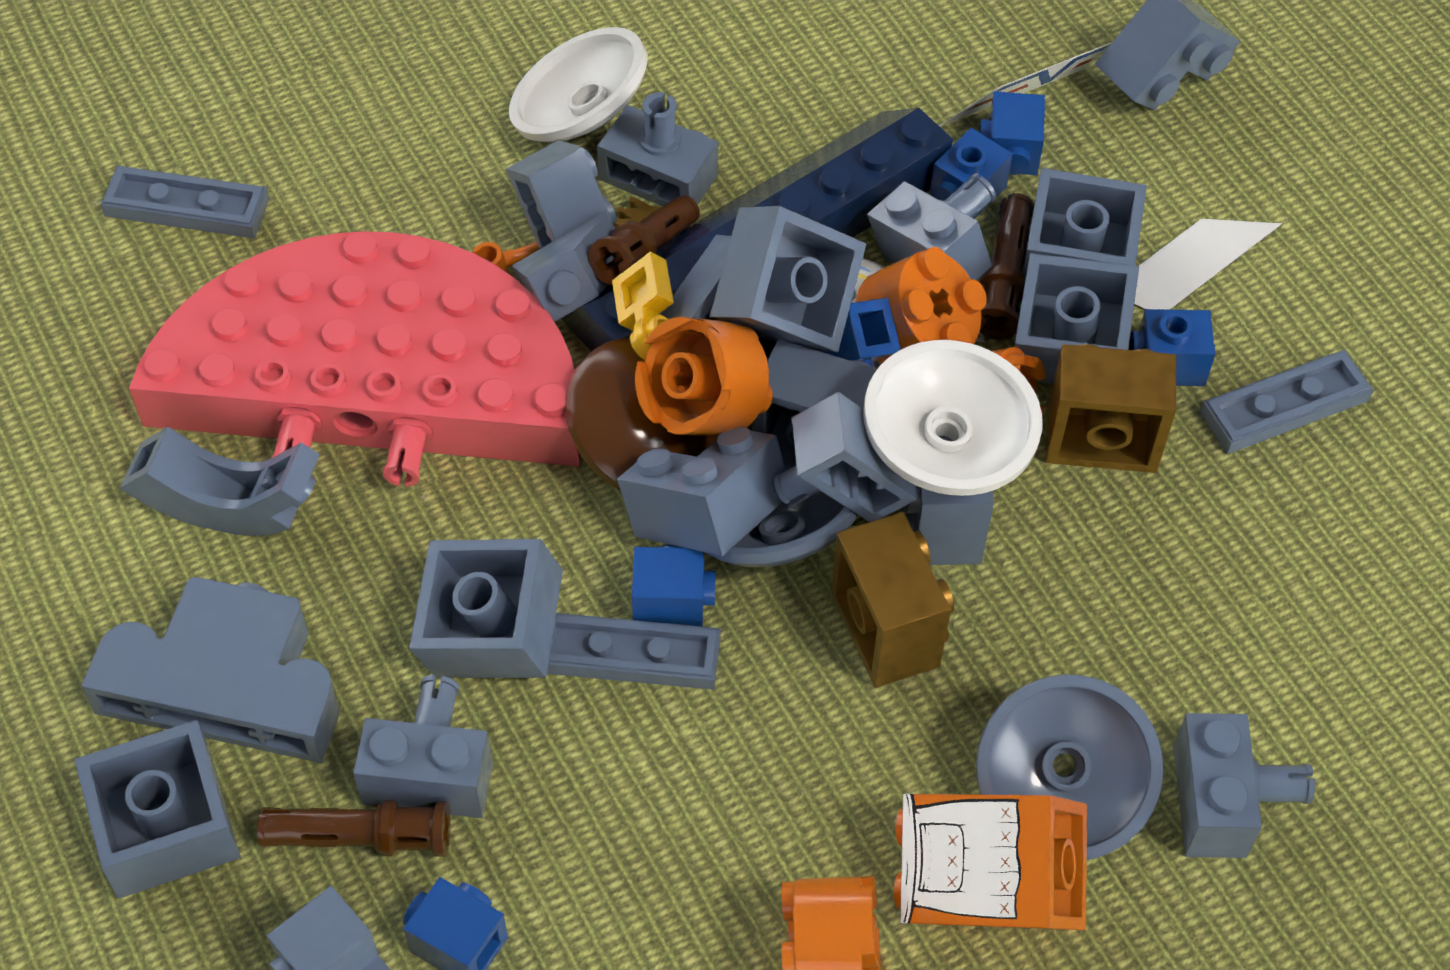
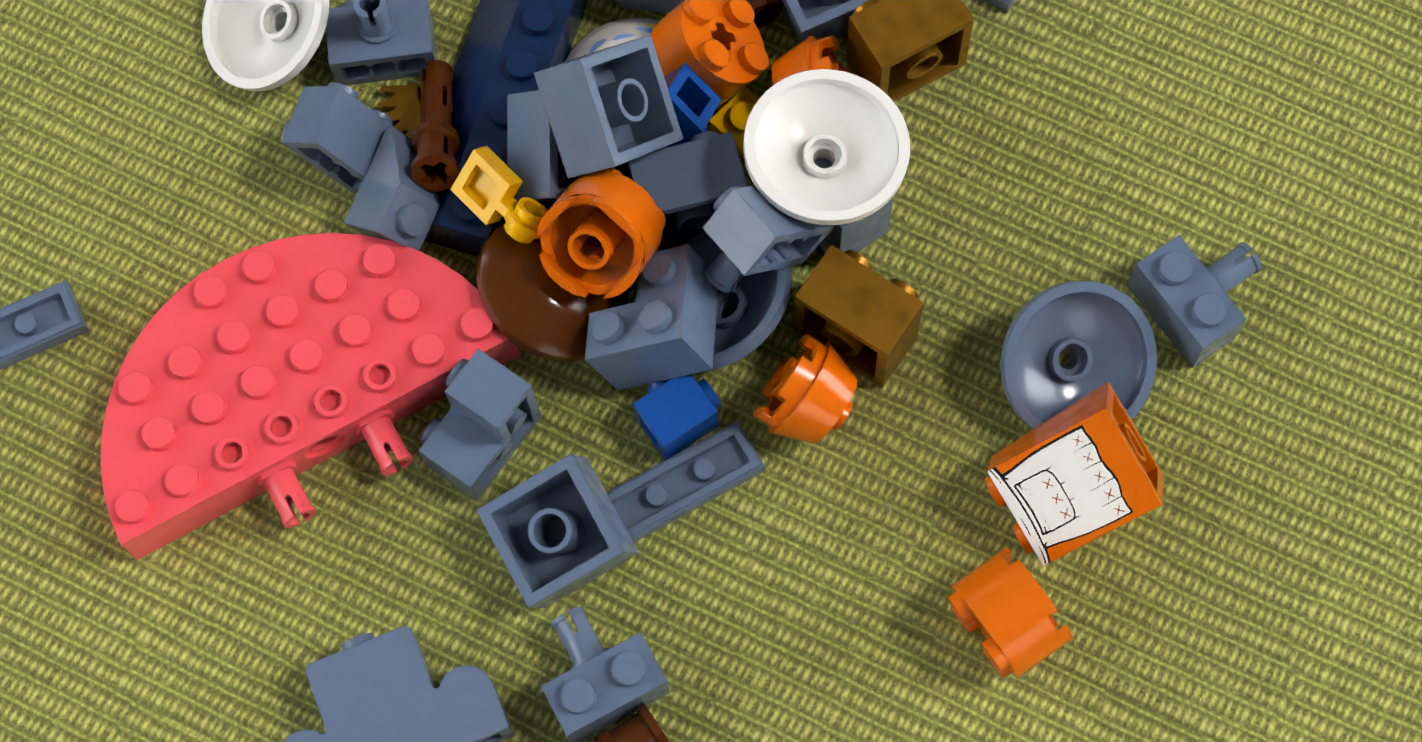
camera: 30 degrees left, 15 degrees up
(219, 491) = (260, 576): sand blue arch -> none
(492, 252) = (320, 211): orange hand -> none
(500, 490) = (483, 428): none -> sand blue brick
(796, 637) = (808, 393): none -> orange cone

